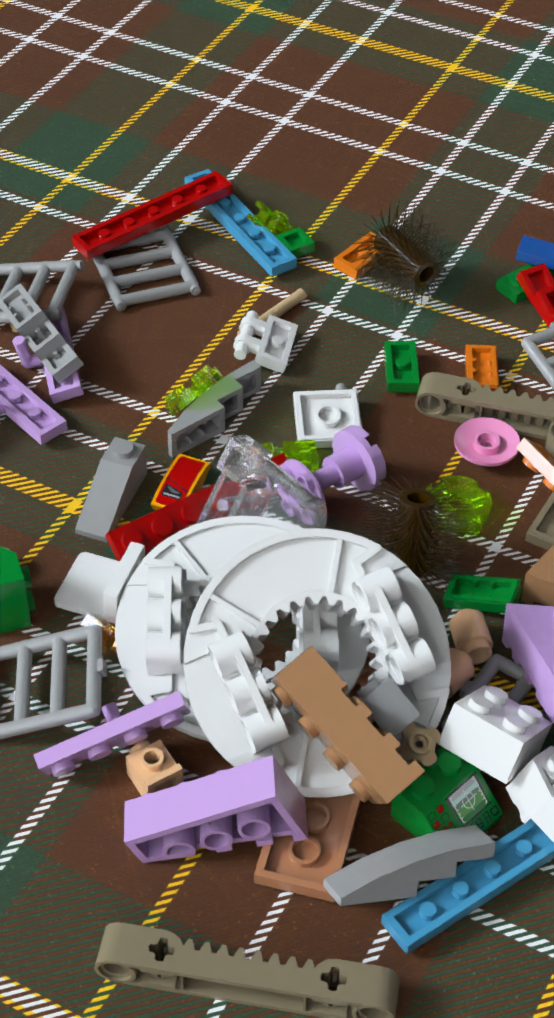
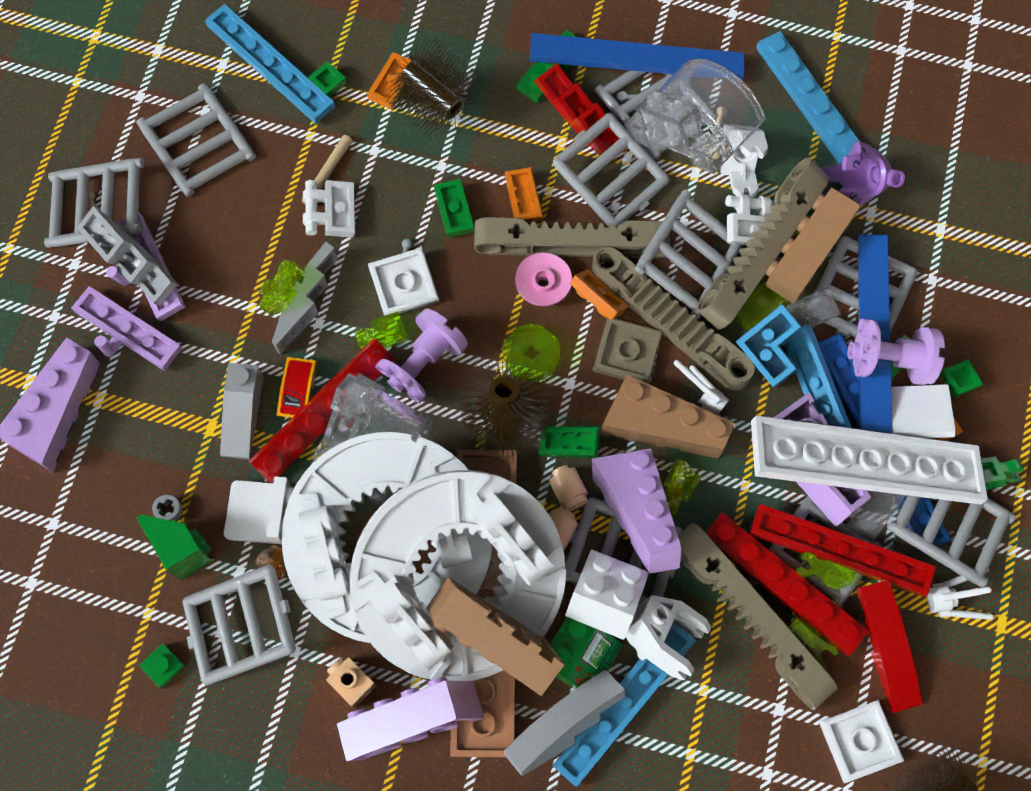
camera: 15 degrees left, 25 degrees up
(118, 732) = (318, 660): lavender plate -> none
(151, 215) = (189, 81): red plate -> none
(274, 220) = (300, 58): clear neon green plate -> none
(388, 704) = (521, 607): light grey brick -> none
(428, 737) = (545, 616): tan plate -> none

